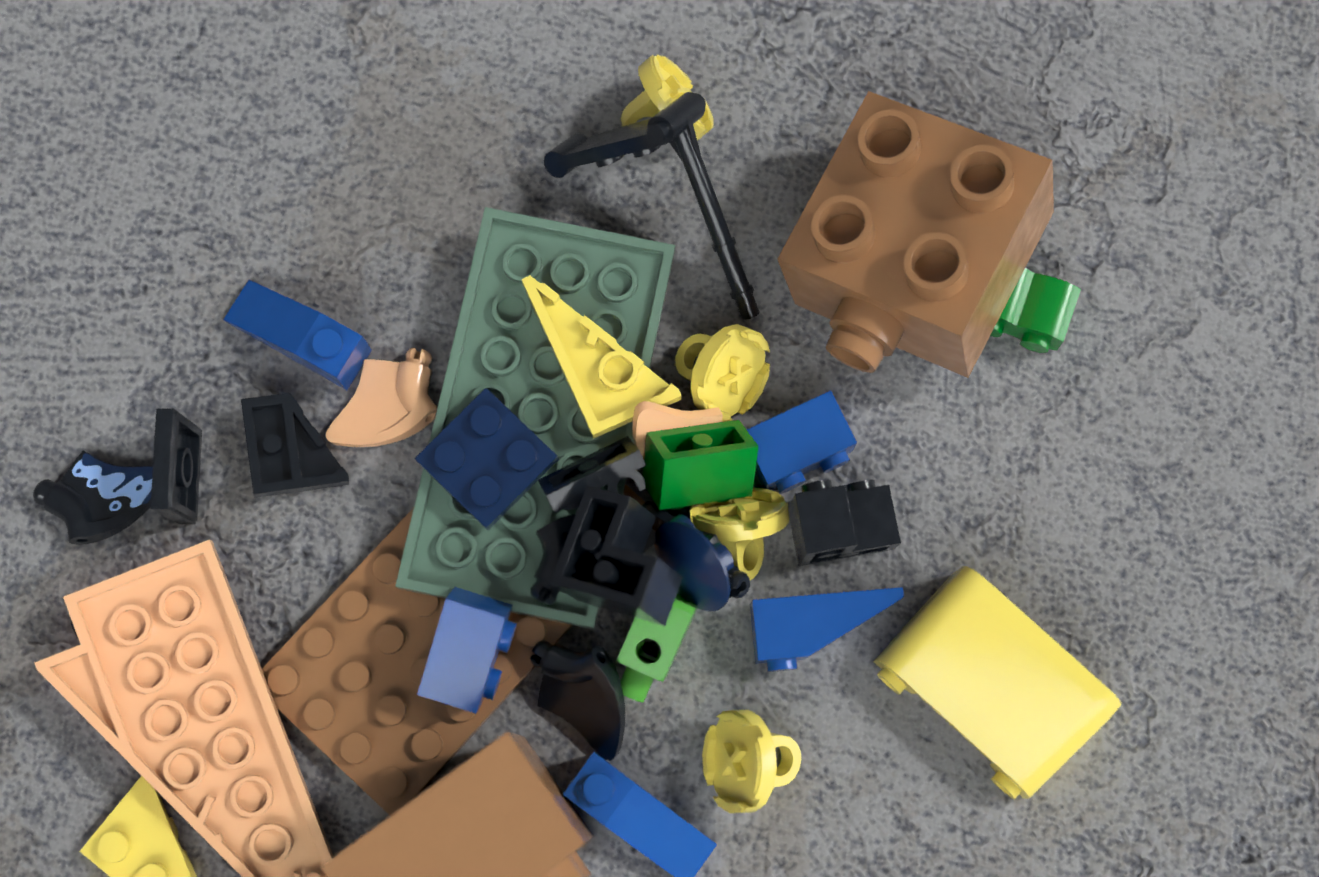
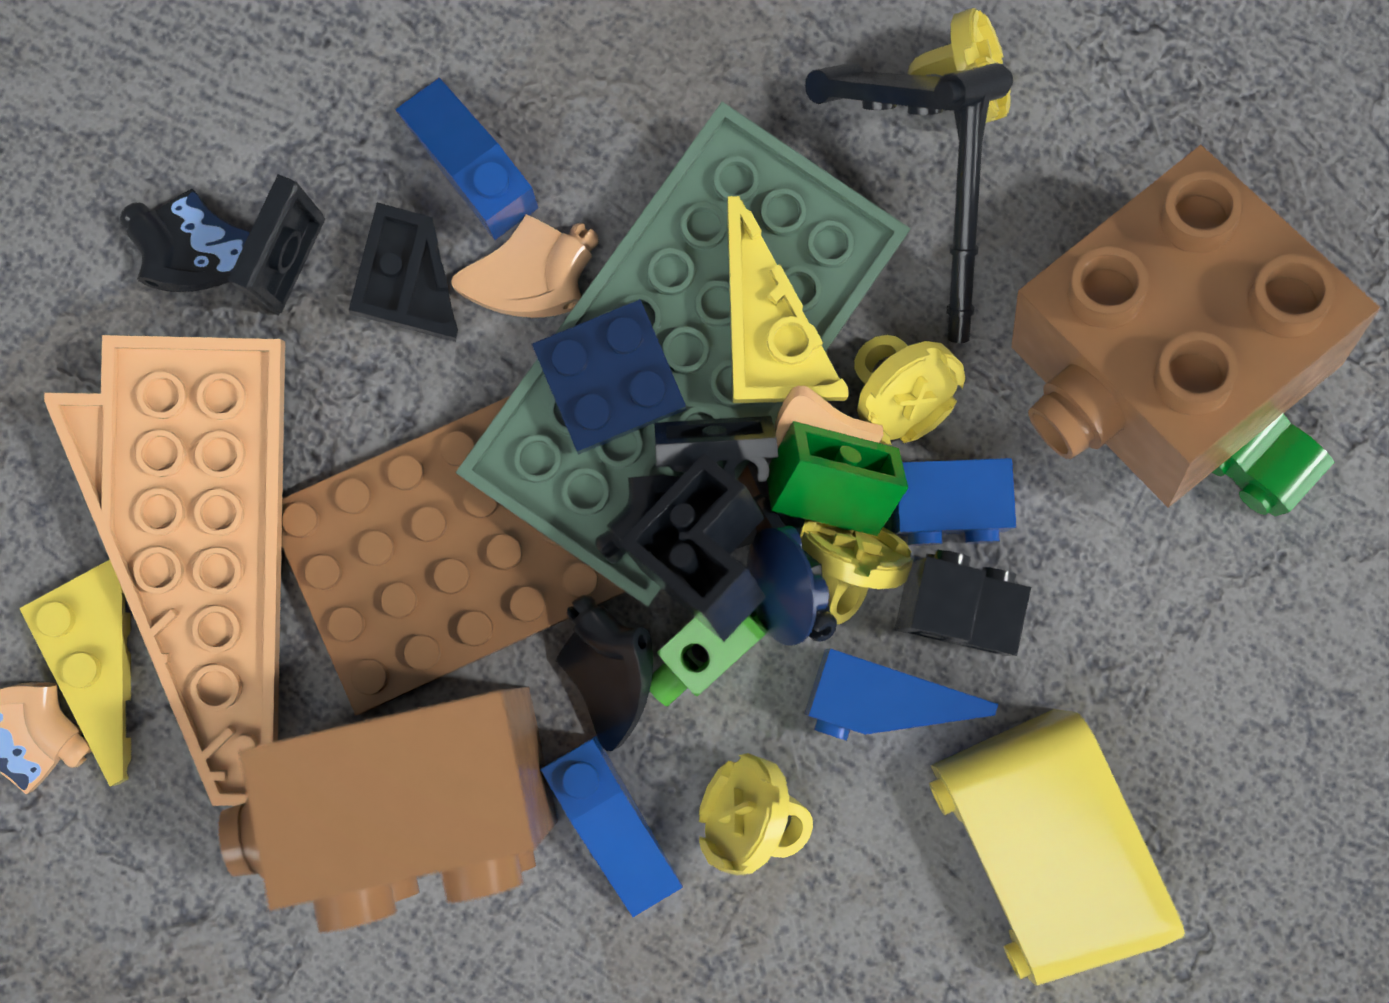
camera: 20 degrees right, 5 degrees up
(466, 650) = (501, 573): brick -> none

